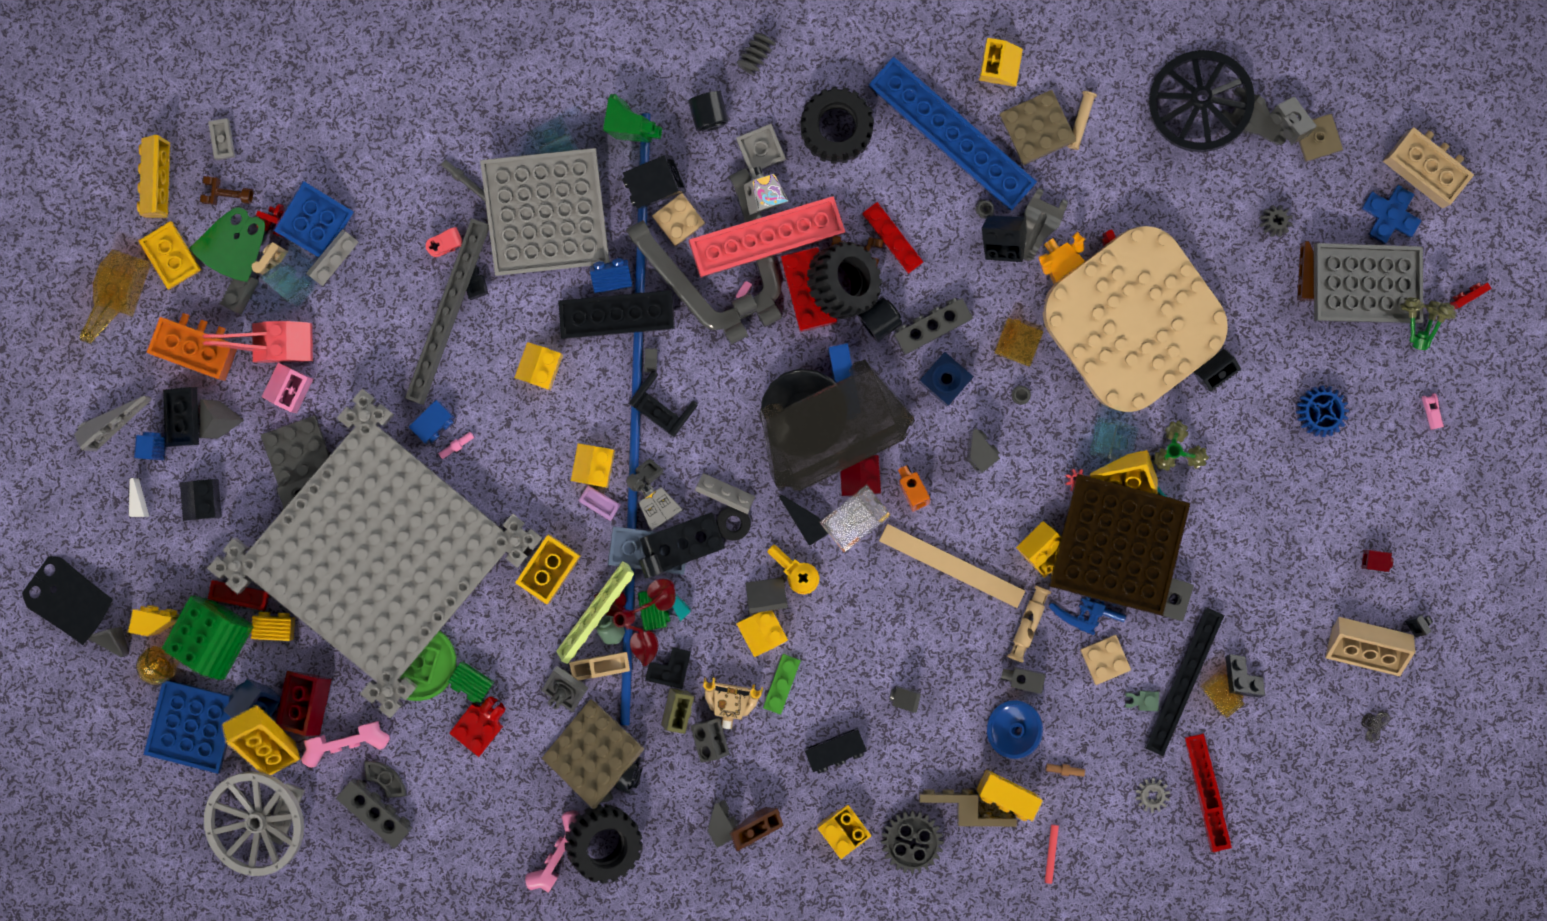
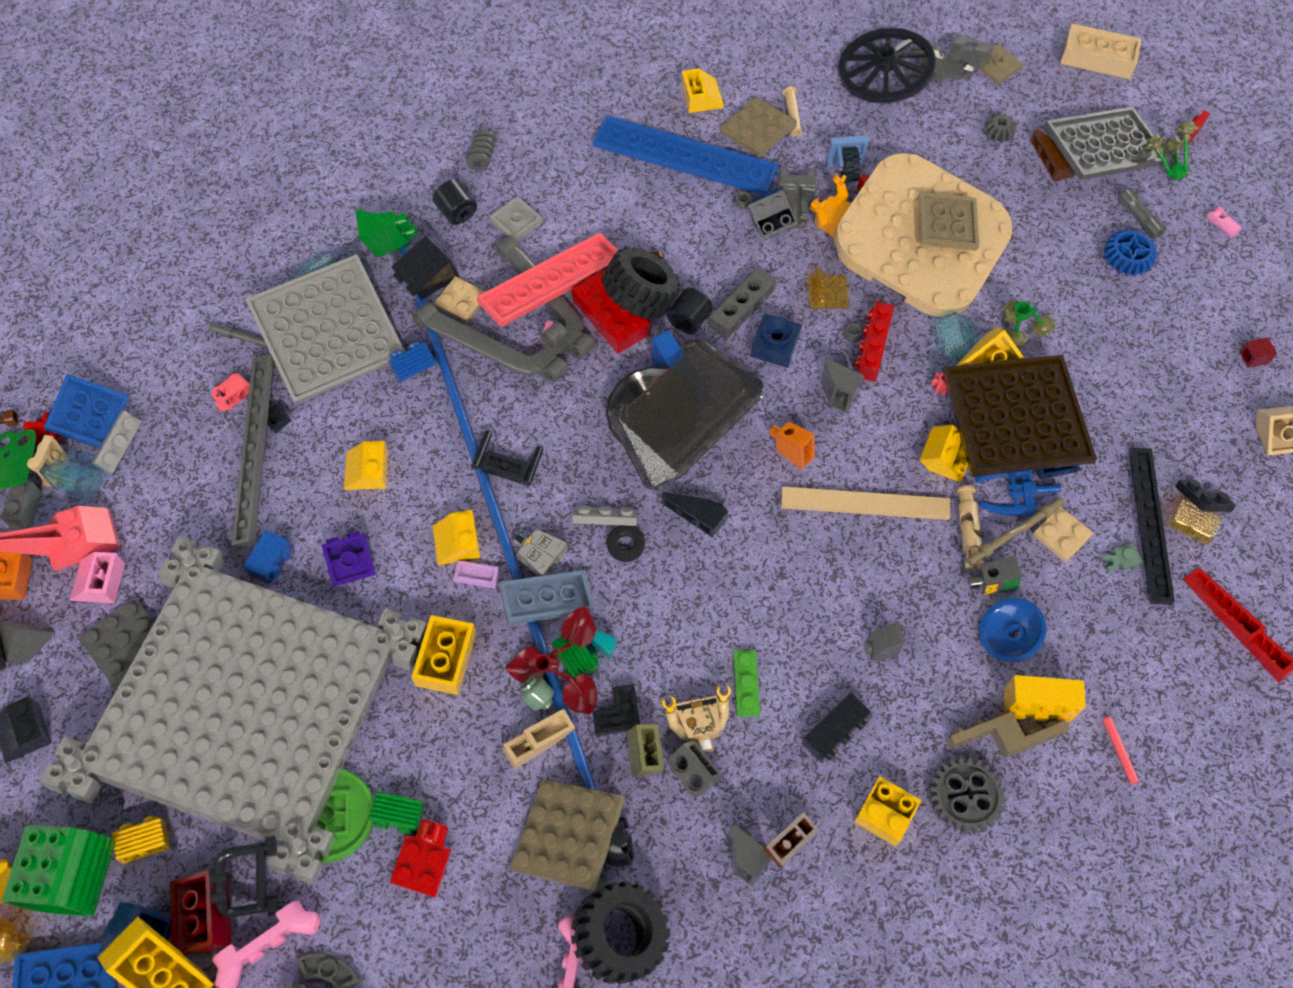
camera: 20 degrees left, 25 degrees down
(249, 598) = (94, 817): red plate -> none
(352, 712) = (217, 875): none -> black bar
(456, 445) = (301, 572): bright pink bar -> none
(498, 449) = (348, 558): none -> dark purple plate
(564, 689) = (508, 775): dark grey plate -> none
(595, 612) = (512, 678): yellowish green plate -> none
(616, 314) = (429, 393): black plate -> none
(646, 471) = (512, 526): dark grey plate -> none
(651, 360) = (479, 422): dark grey piece -> none
(655, 563) = (560, 603): black hinge -> none
(762, 632) = (702, 634): yellow slope -> none
(763, 192) = (533, 246): torso -> none
(766, 595) = (690, 594): dark grey tile -> none
(794, 570) = (711, 563): yellow piece -> none
(842, 100) = (584, 194): black tyre -> none
(855, 518) = (749, 482): clear slope -> none
(861, 474) = (736, 452): dark red slope -> none
(892, 238) = (671, 249): red plate -> none
(1035, 414) = (874, 344): none -> red brick
(1065, 770) = (1085, 656): medium nougat bar -> none
(1099, 636) = (988, 549): none -> dark tan bar
(1105, 205) = (848, 155): none -> plate
(1160, 323) = (948, 221): none -> dark tan plate
(1160, 796) = (1194, 645): light grey gear -> none
(1183, 591) = (1105, 454): dark grey brick -> none
(1217, 370) = (1019, 249): black brick -> none
(1357, 358) = (1150, 223): none -> dark grey axle
(1391, 214) = (1091, 94): blue plate -> none

